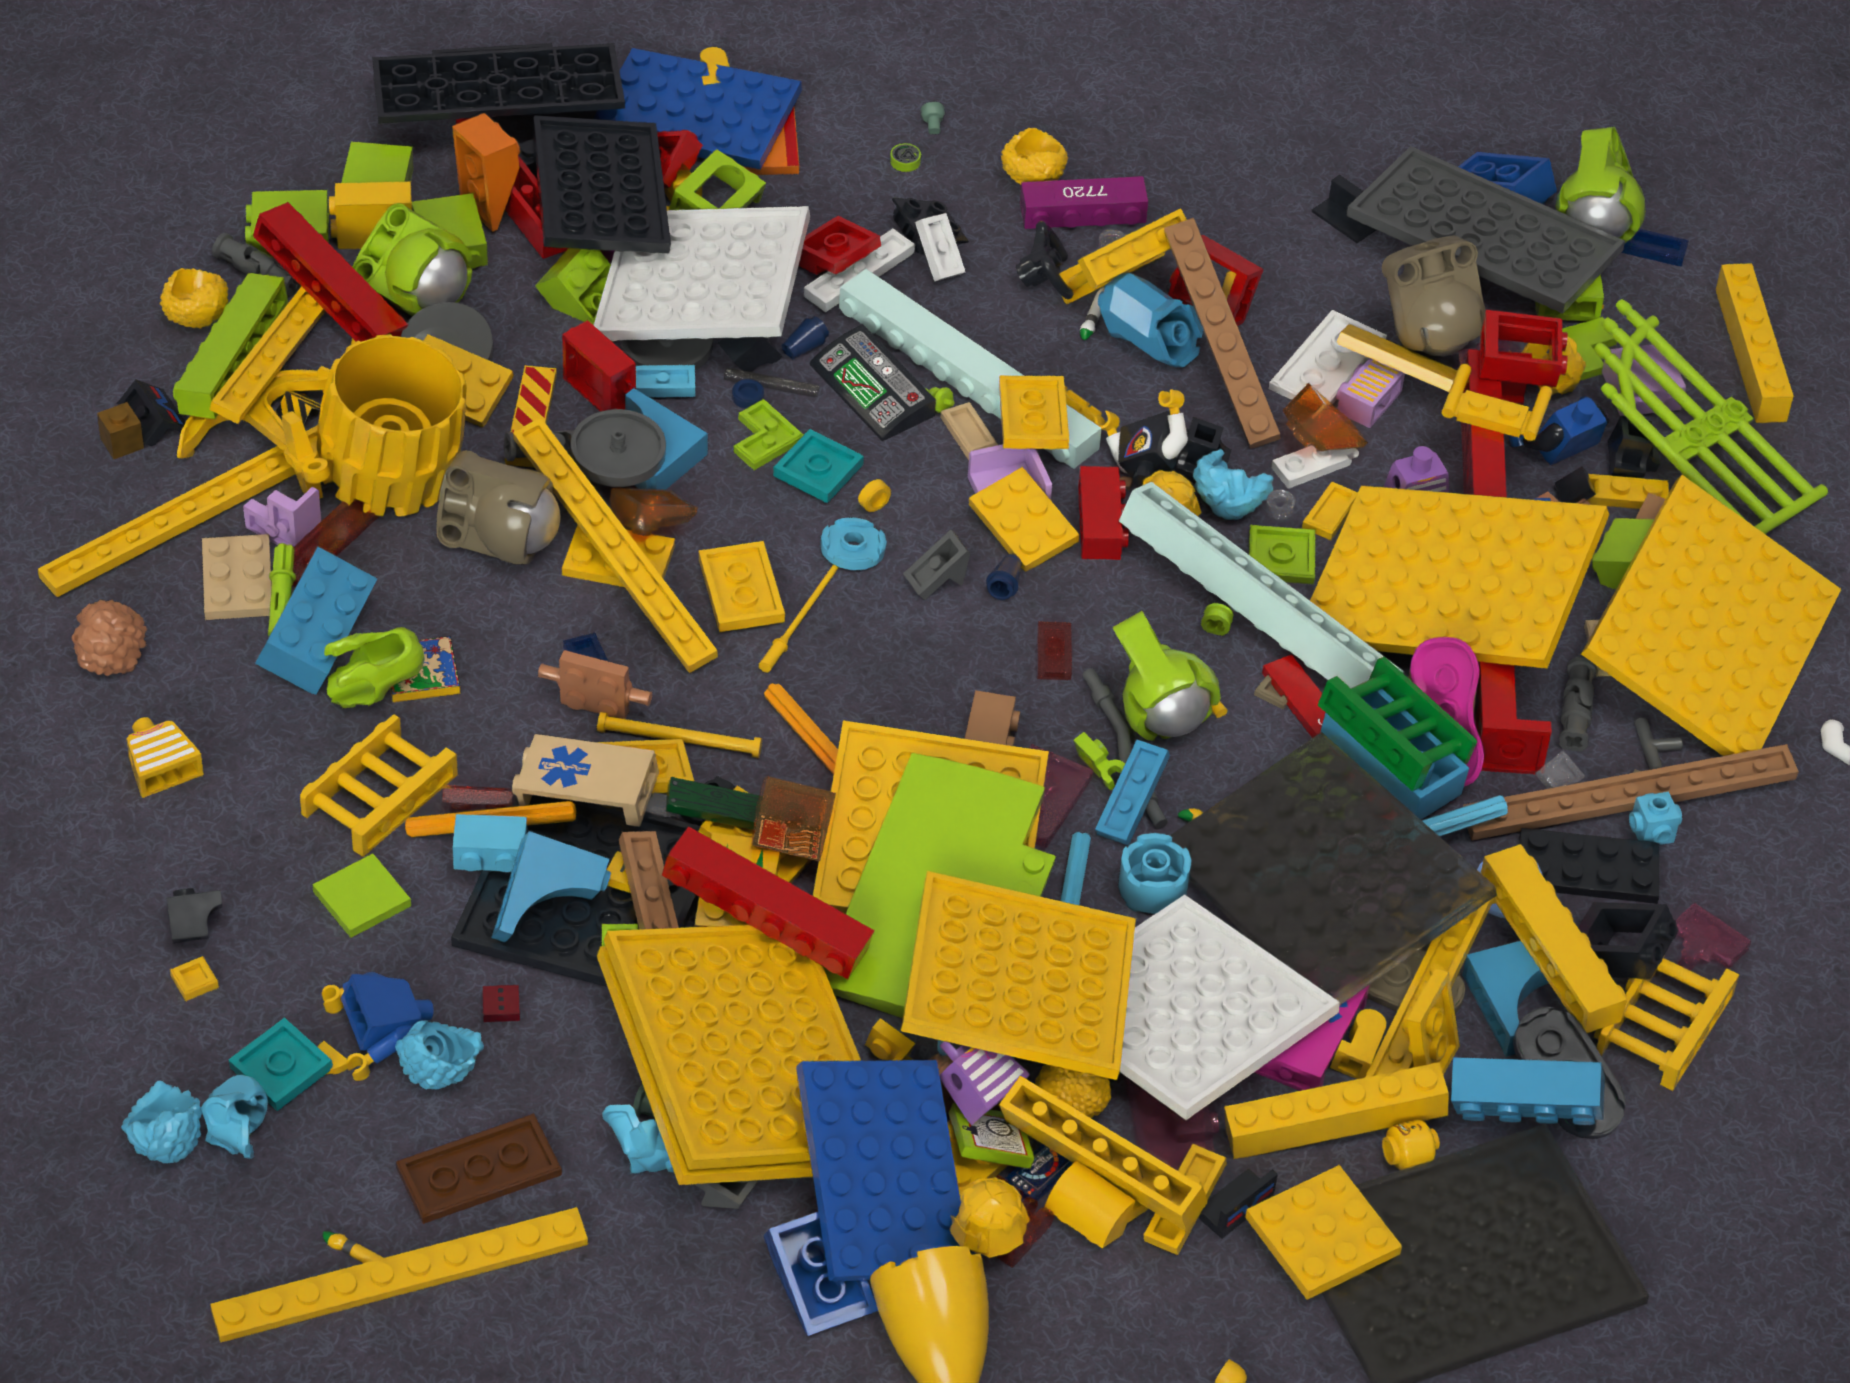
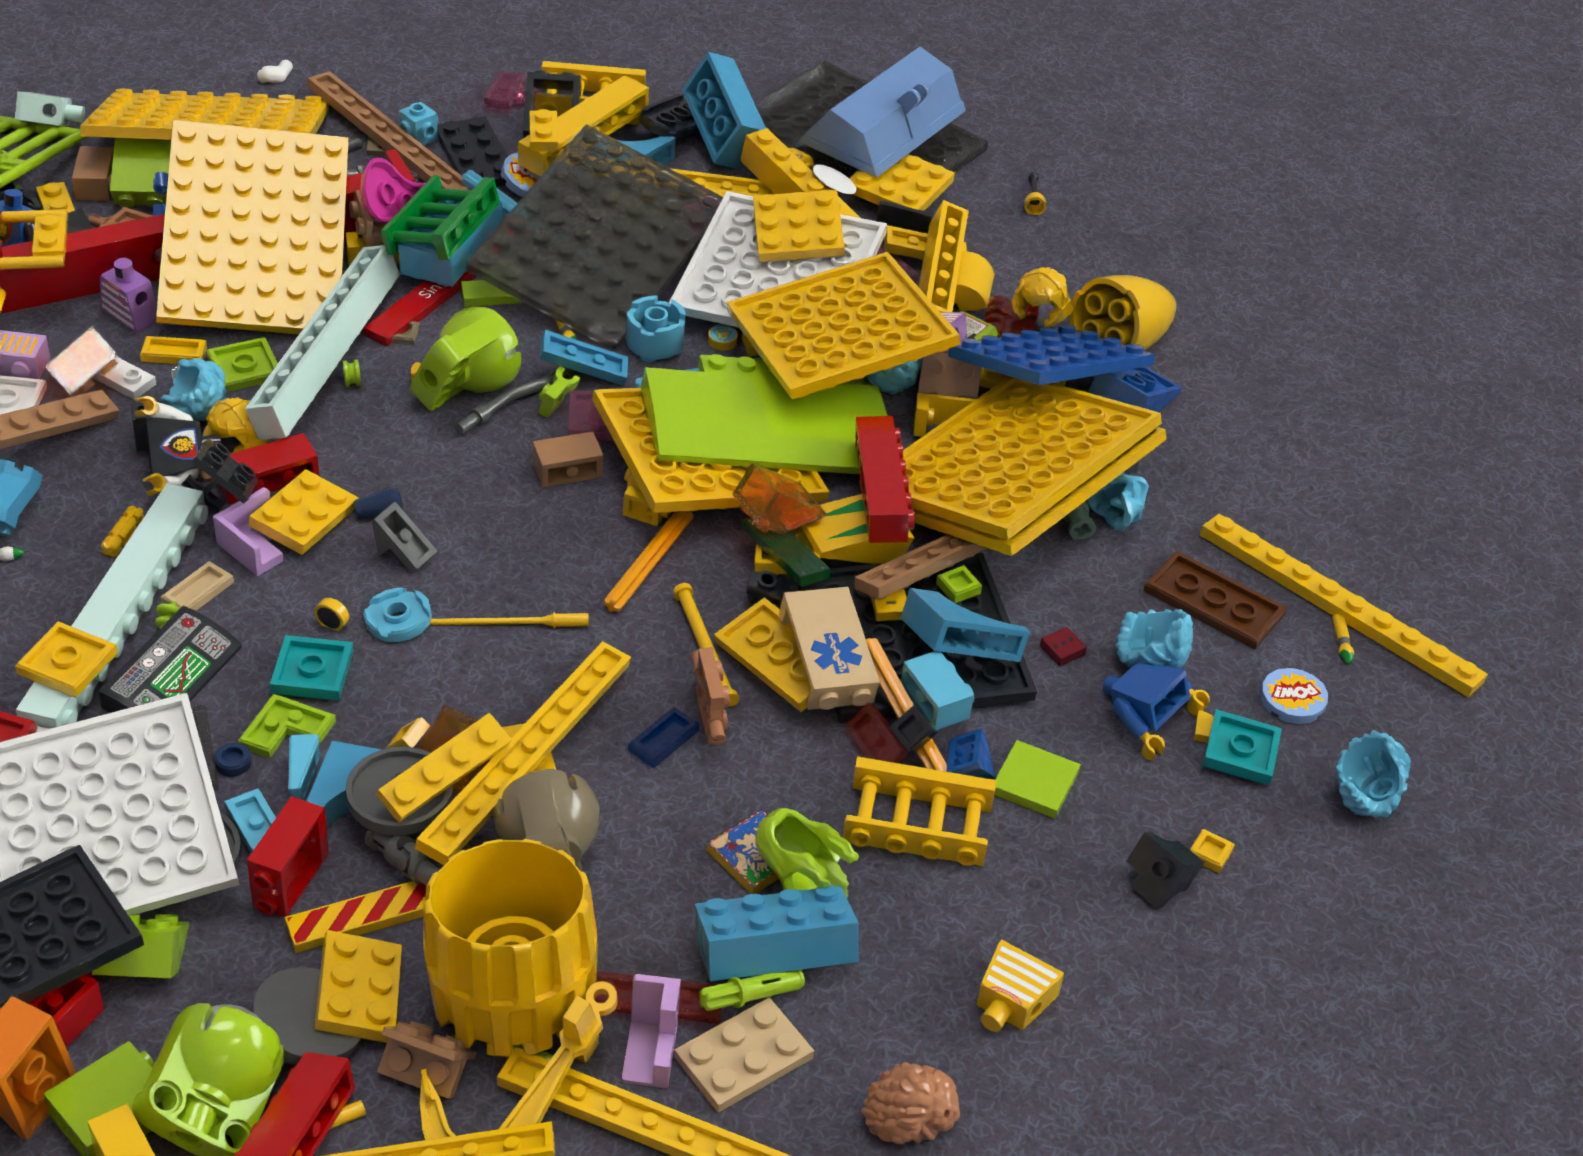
camera: 120 degrees left, 5 degrees down
(234, 1113) = (1317, 743): medium azure head -> none
(298, 403) = (472, 1112): sticker -> none
(314, 1154) = (1294, 695): none -> tile
(409, 851) = (970, 755): none -> blue slope
(457, 805) = (913, 730): none -> black tile
(607, 462) = (443, 767): none -> yellow plate
(693, 493) = (409, 734): none -> yellow tile
(706, 417) = (303, 760): none -> medium azure slope
(741, 586) = (503, 665): yellow plate -> none
(901, 305) = (66, 659): none -> yellow tile
(1033, 412) = (183, 515): yellow plate -> none
(1054, 651) = (444, 457): clear red plate -> none
(1067, 444) = (219, 465): none -> black plate
(1229, 1029) = (798, 225): none -> yellow plate
(1329, 1134) = (834, 179): none -> white sticker
(1433, 1023) = (711, 148): yellow plate -> none
(1435, 1248) = (889, 114): none -> medium blue piece
(1525, 867) = (543, 130): none -> yellow plate
(1803, 509) = (39, 108): none -> light aqua torso

